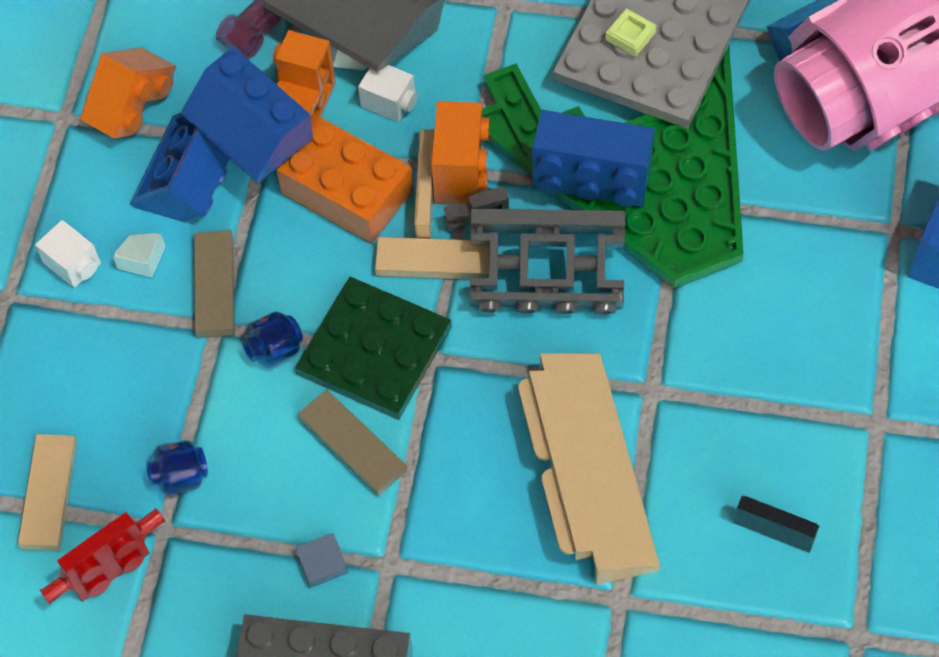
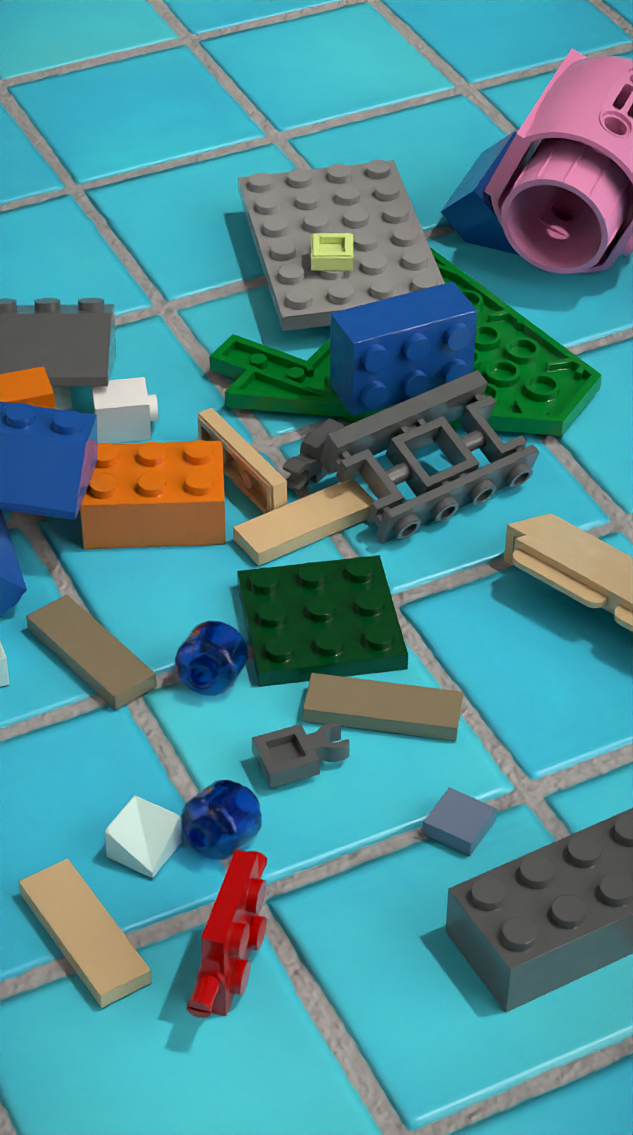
camera: 40 degrees left, 20 degrees down
(127, 448) = (143, 836): none -> light aqua slope
(262, 442) = (293, 755): none -> dark grey plate
(457, 154) = (259, 404): orange brick -> none

